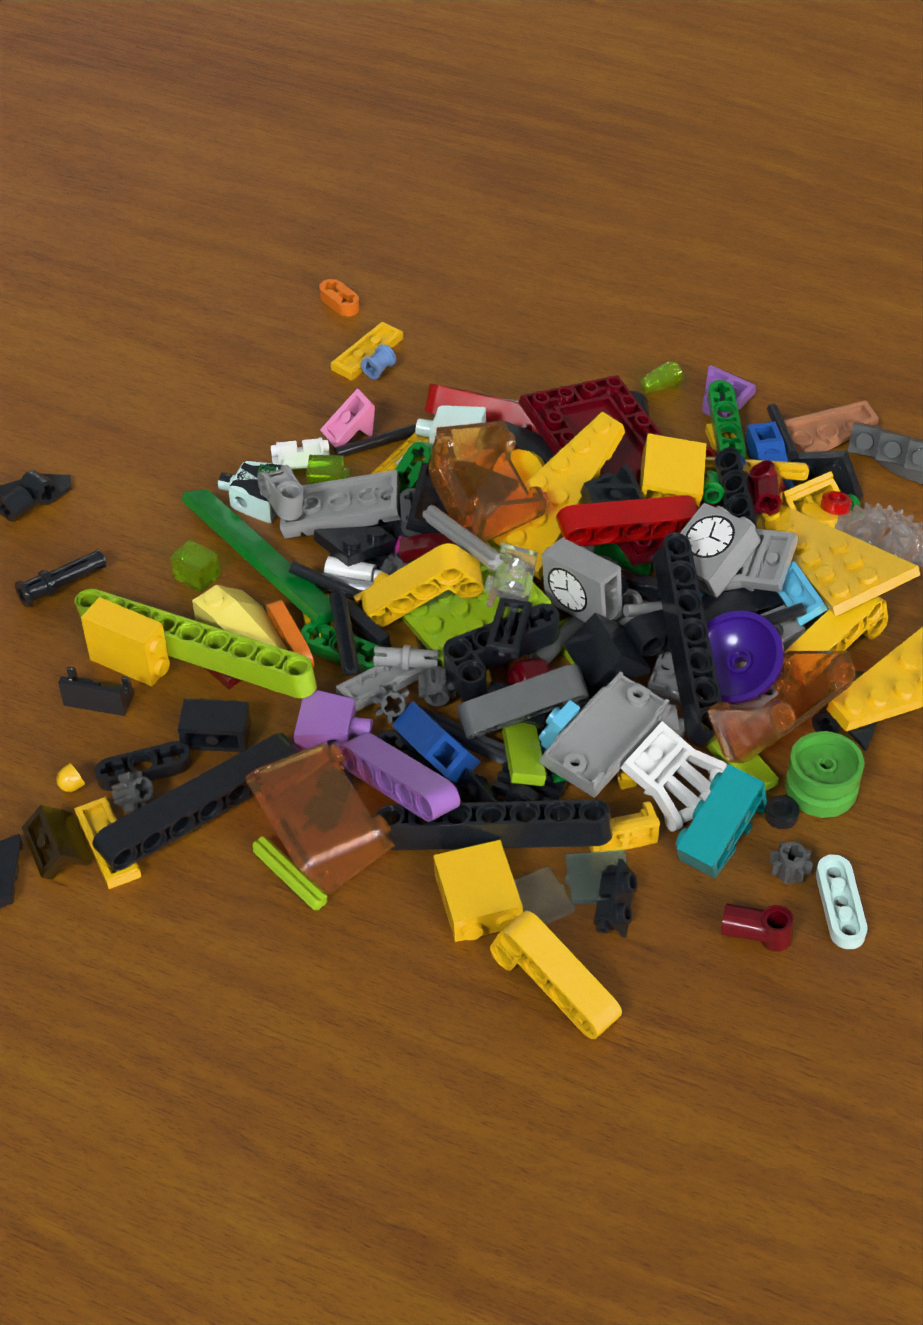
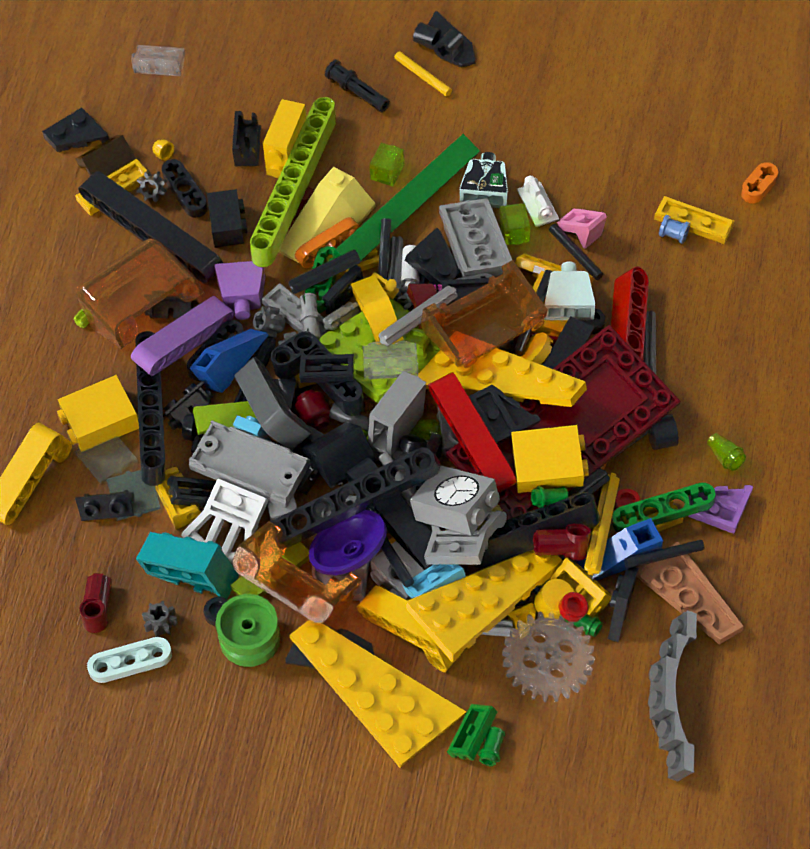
camera: 80 degrees right, 10 degrees up
(66, 520) = (423, 74): none -> yellow bar
(282, 492) = (468, 189): light grey piece -> none
(407, 634) = (341, 315): none -> light grey axle
(411, 464) = (534, 274): green beam -> none
(623, 809) = (189, 496): none -> black tile

